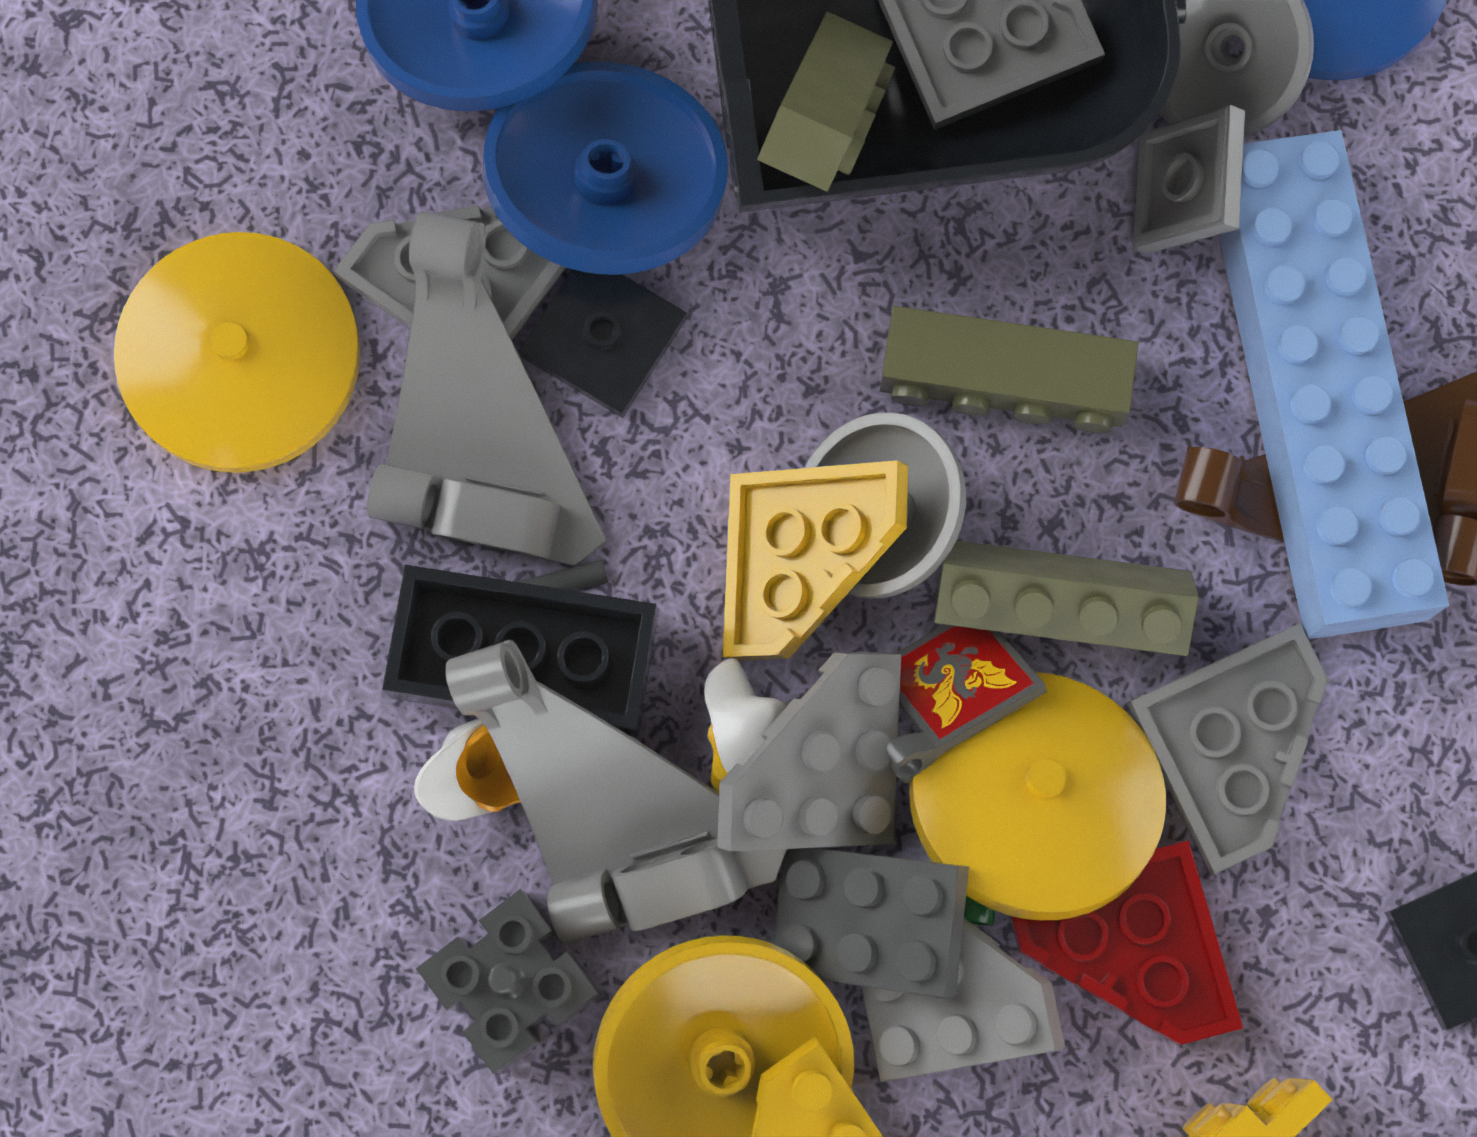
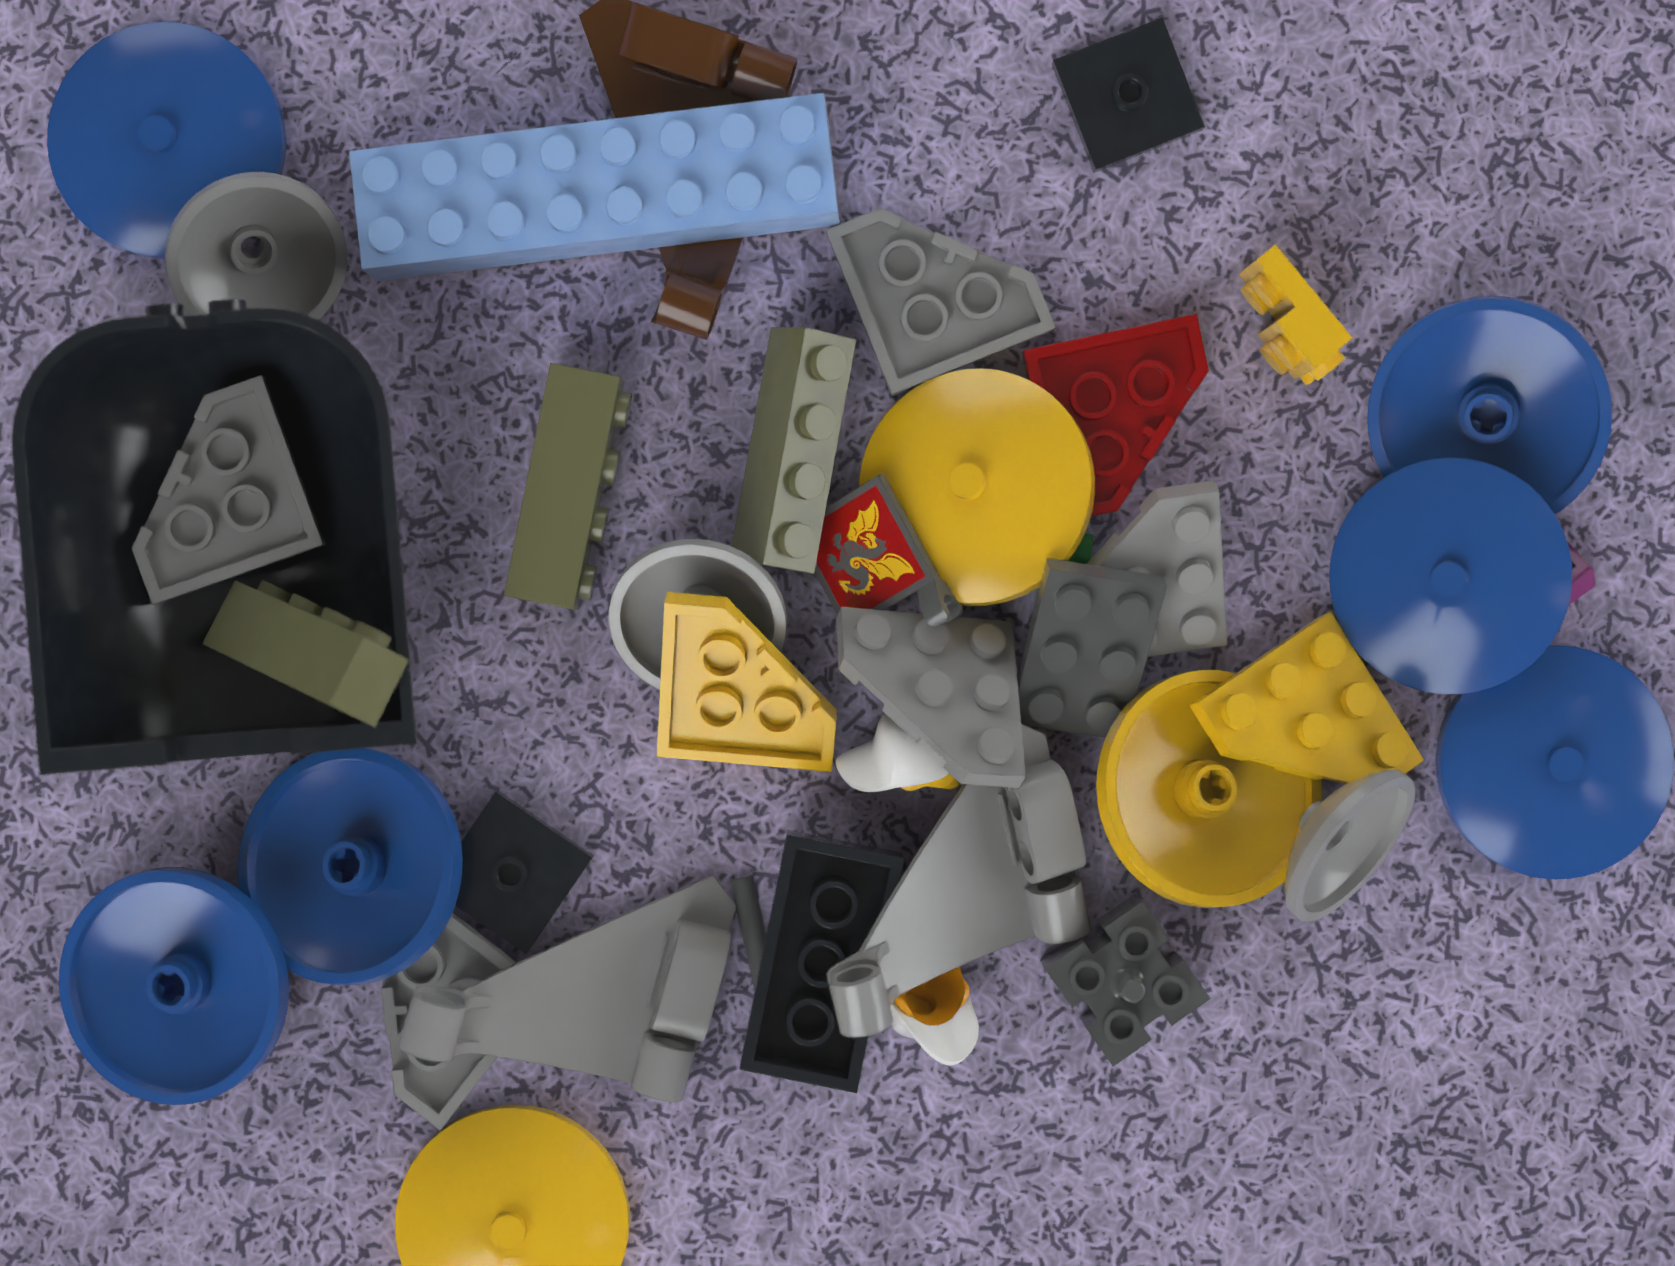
camera: 90 degrees left, 10 degrees up
(1189, 179) = (390, 300): light grey tile -> none

